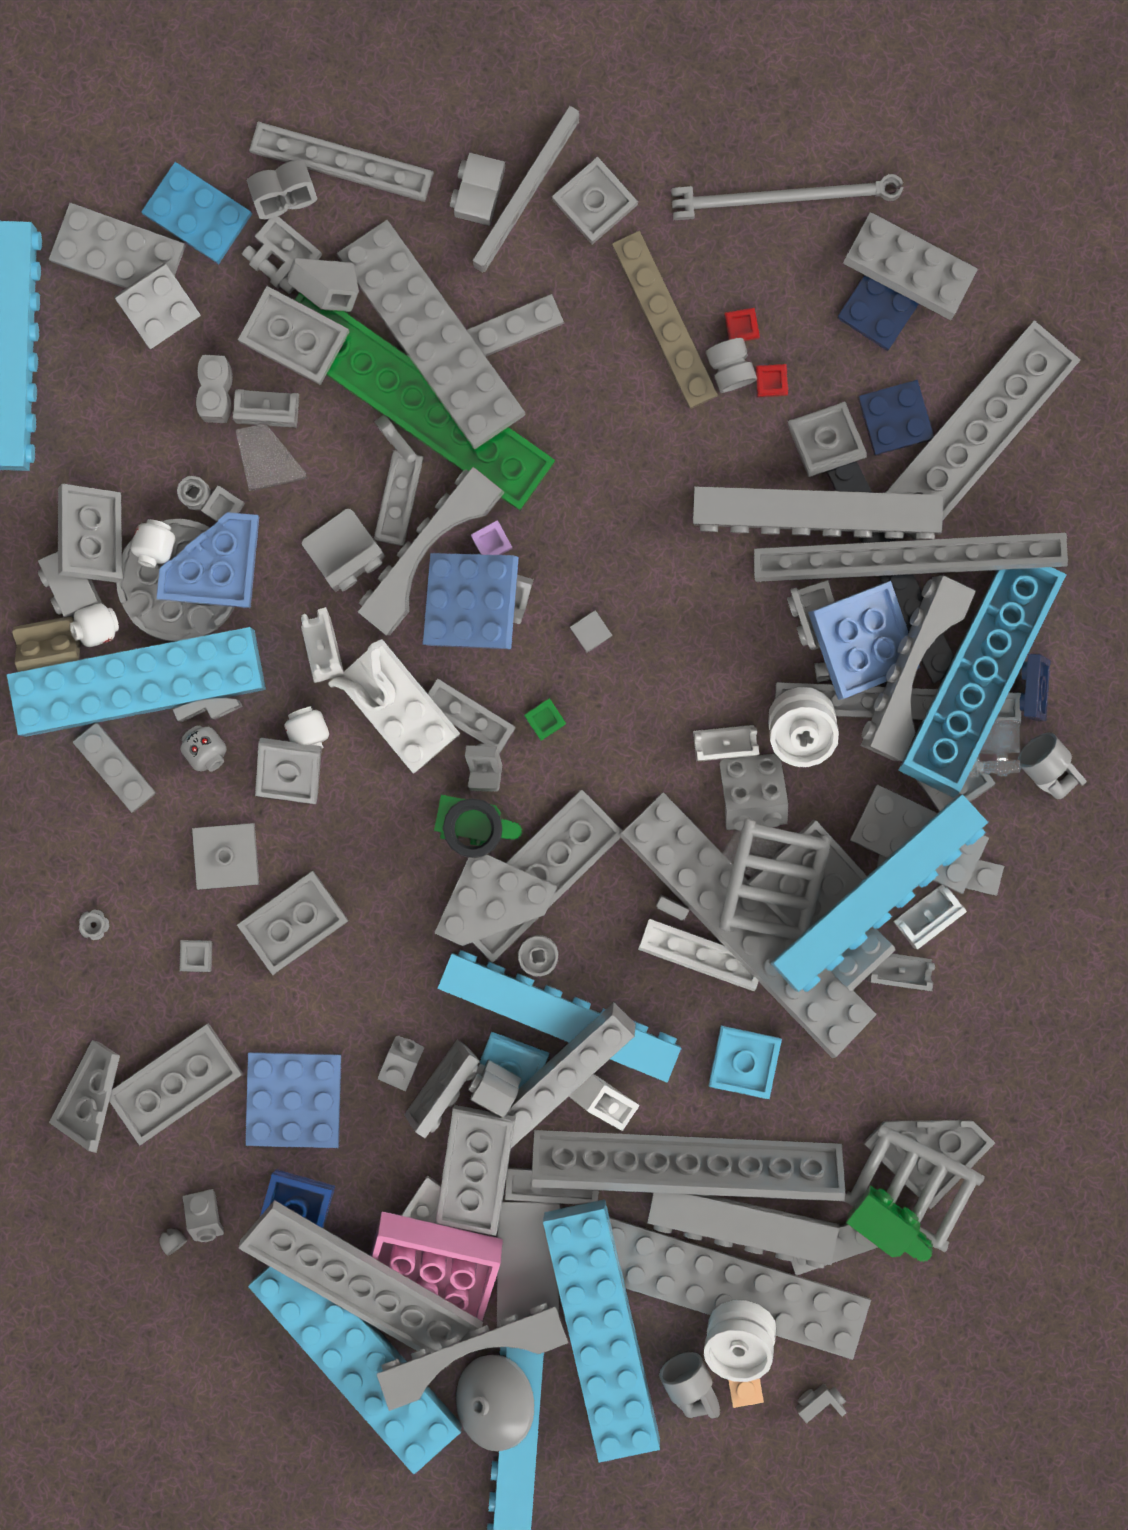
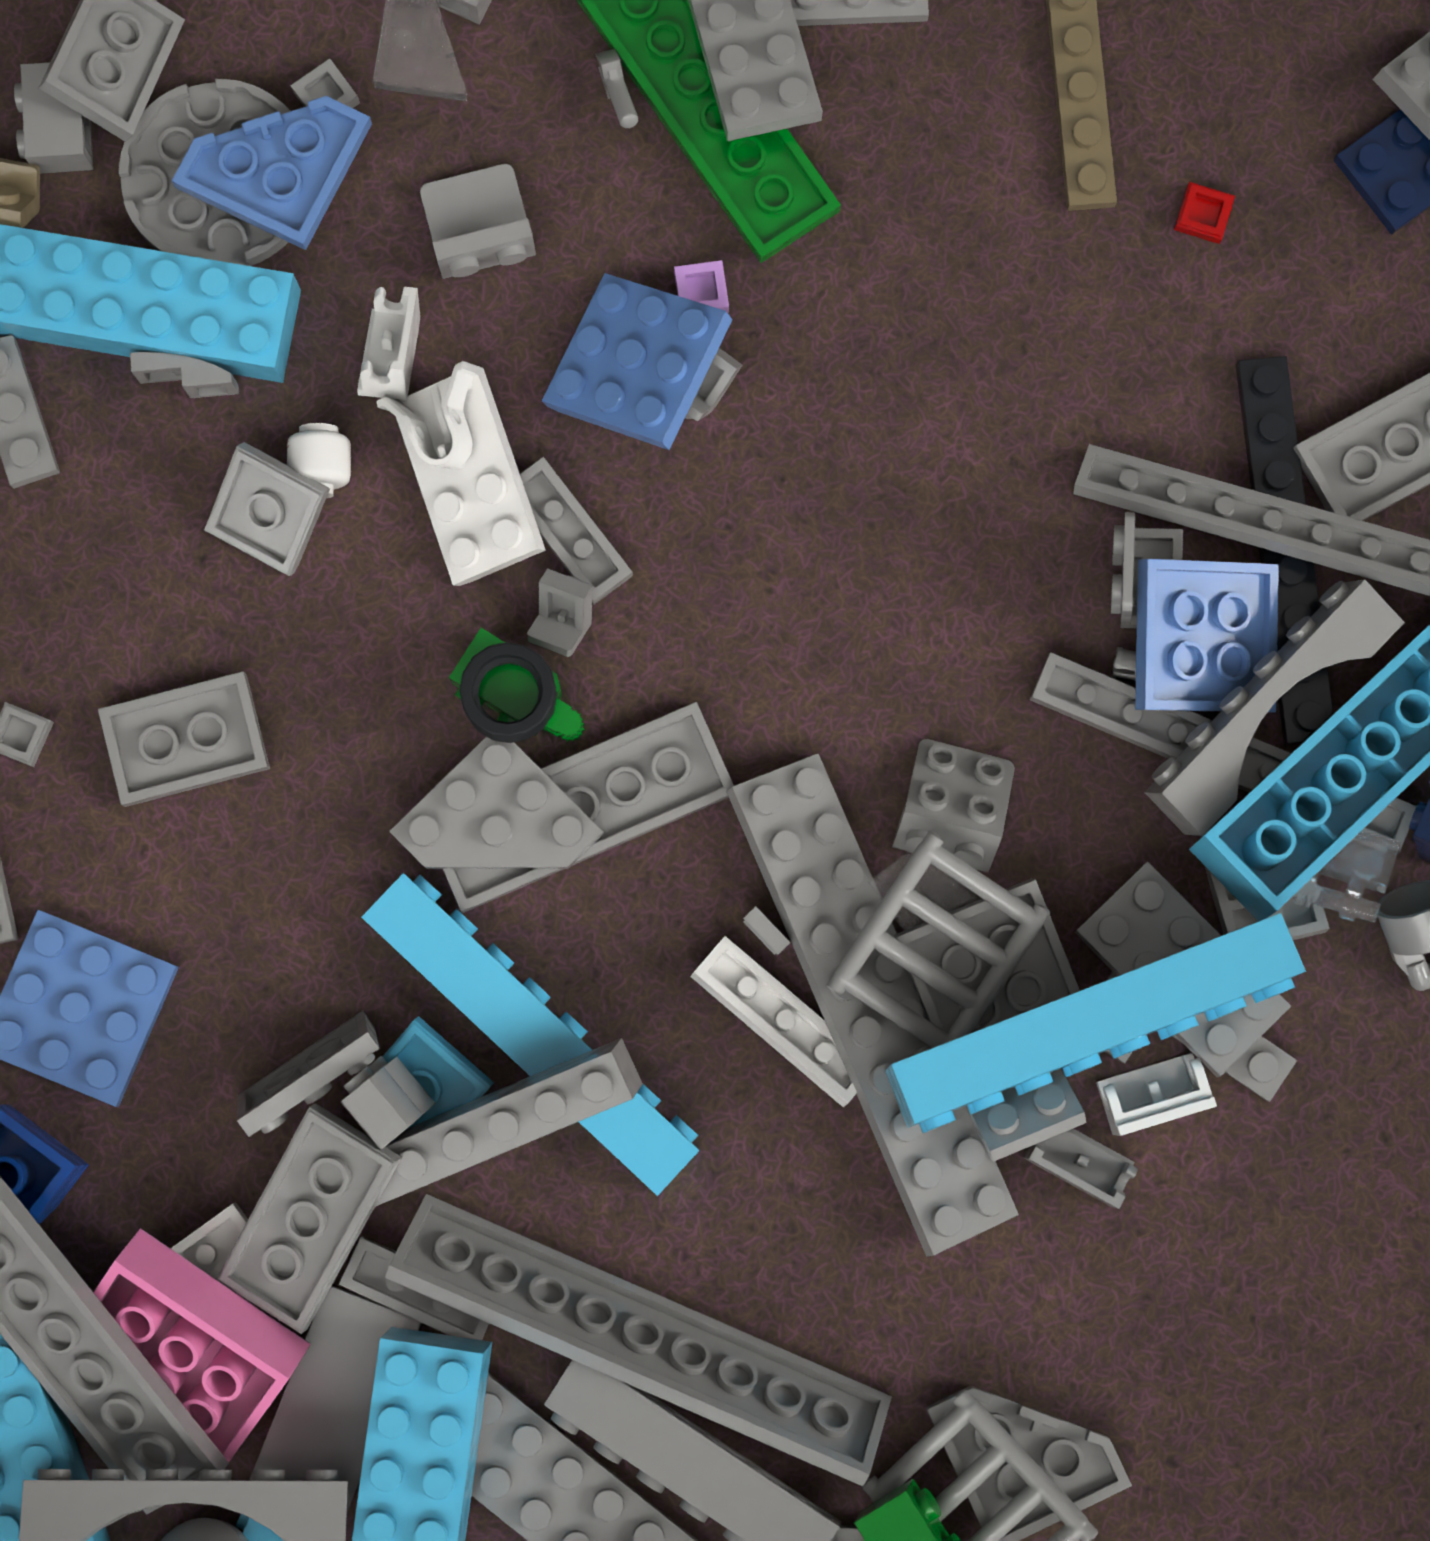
camera: 20 degrees right, 5 degrees down
(94, 625) = (66, 190): white head -> none
(152, 543) = (198, 99): white head -> none
(198, 494) = (292, 65): light grey wheel -> none
(203, 748) = (154, 429): light grey head -> none
(225, 856) = (124, 603): light grey plate -> none
(390, 600) = (689, 213): light grey arch -> none
(398, 500) = (587, 180): light grey tile -> none
(400, 1063) = (262, 1012): light grey bracket -> none
(538, 955) = (534, 926): light grey wheel -> none
(545, 719) = (681, 579): green plate -> none
(591, 631) = (799, 476): light grey tile -> none
(605, 1102) = (549, 1189): white slope -> none
(725, 743) = (939, 716): white hinge -> none
(731, 365) = (1153, 159): light grey wheel -> none
(742, 324) = (1189, 118): red tile -> none
(745, 1062) = (789, 1212): medium azure plate -> none
(803, 727) = (1067, 730): white wheel -> none
(818, 510) = (1207, 421): light grey brick -> none
(827, 439) = (1256, 324): light grey plate -> none
(896, 417) = (1370, 333): dark blue plate -> none

